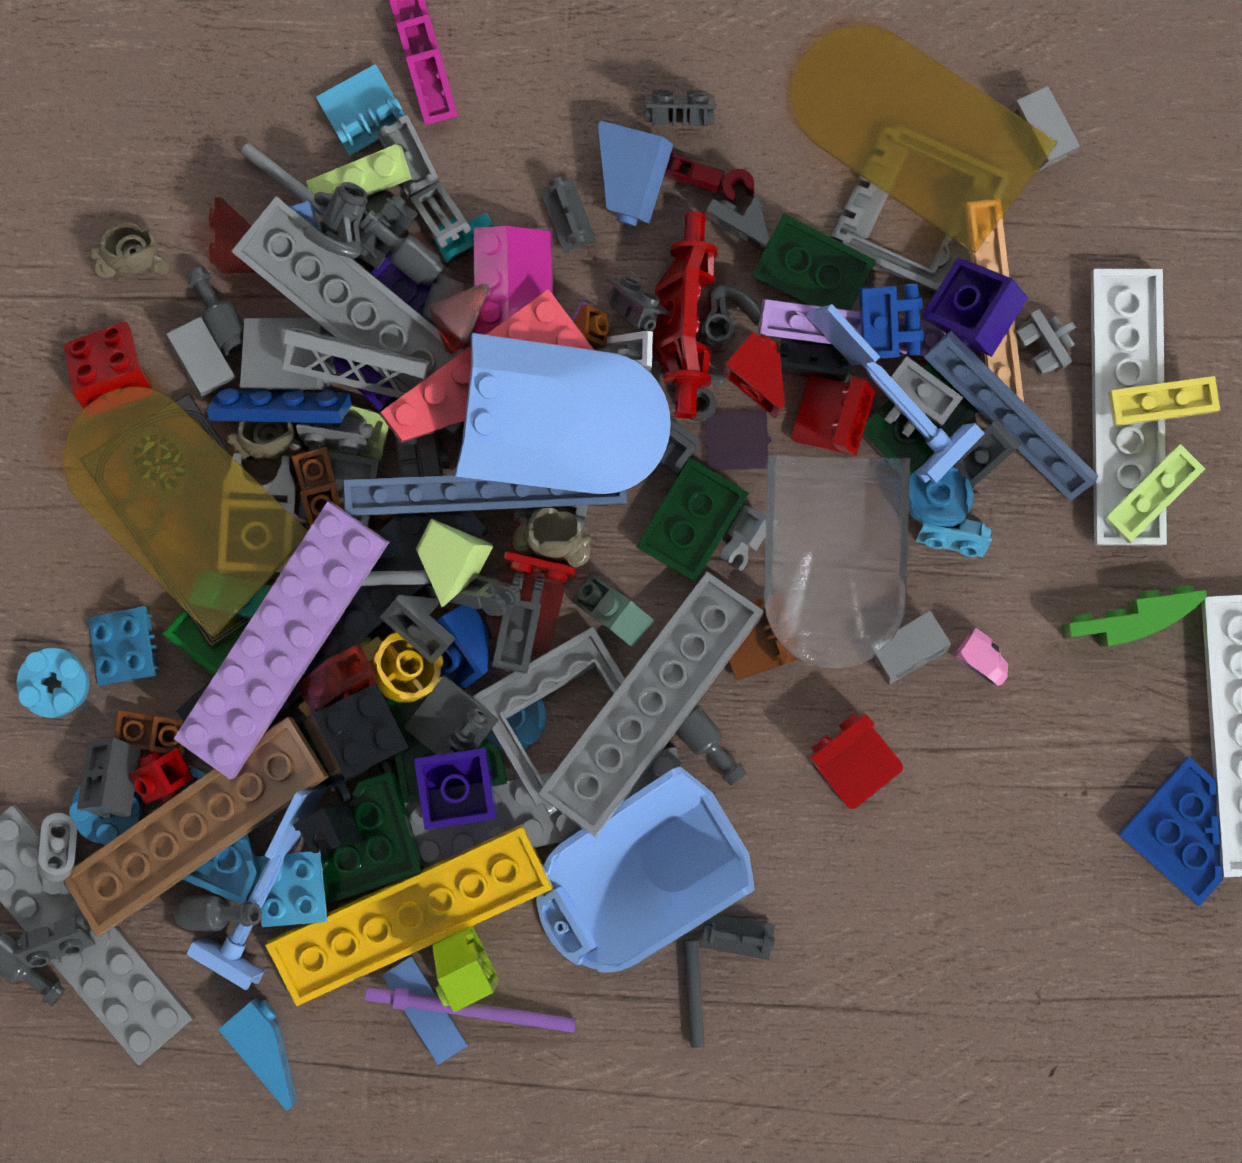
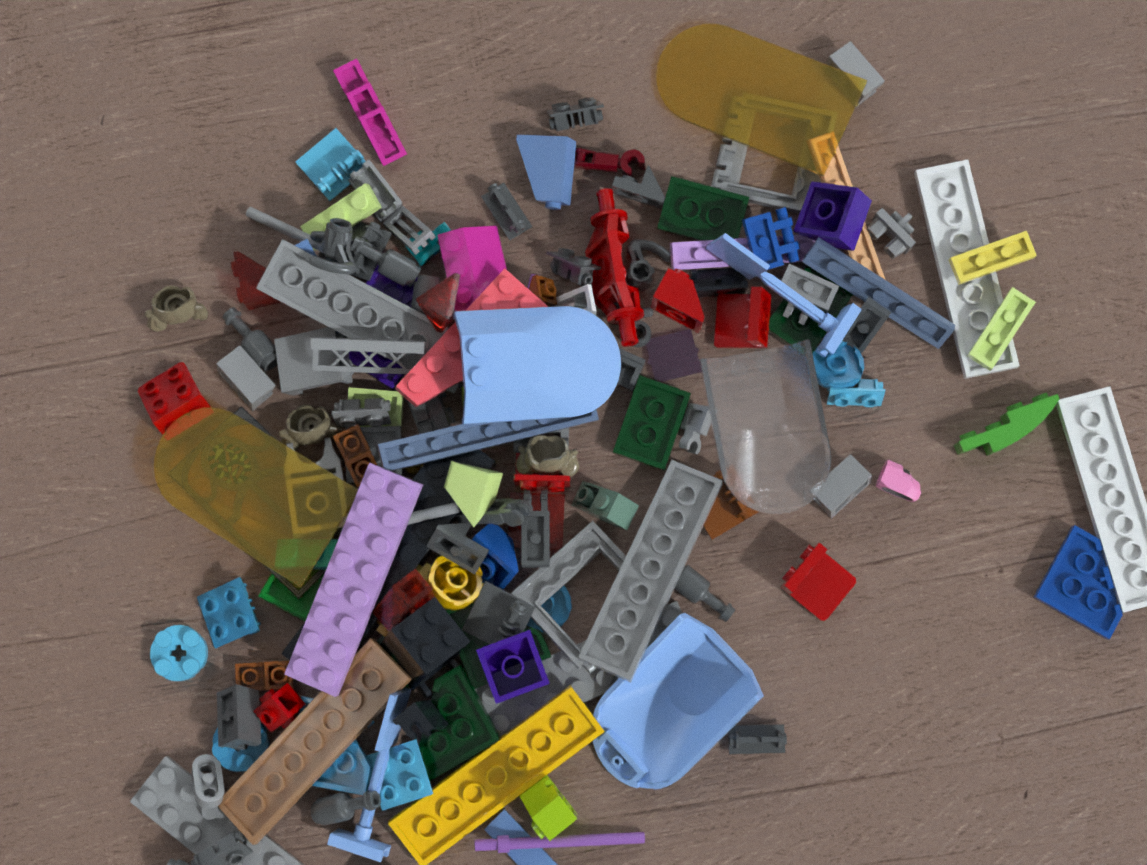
camera: 10 degrees left, 5 degrees down
(279, 406) = (314, 401): blue plate -> none
(694, 993) = (732, 792): dark grey bar -> none

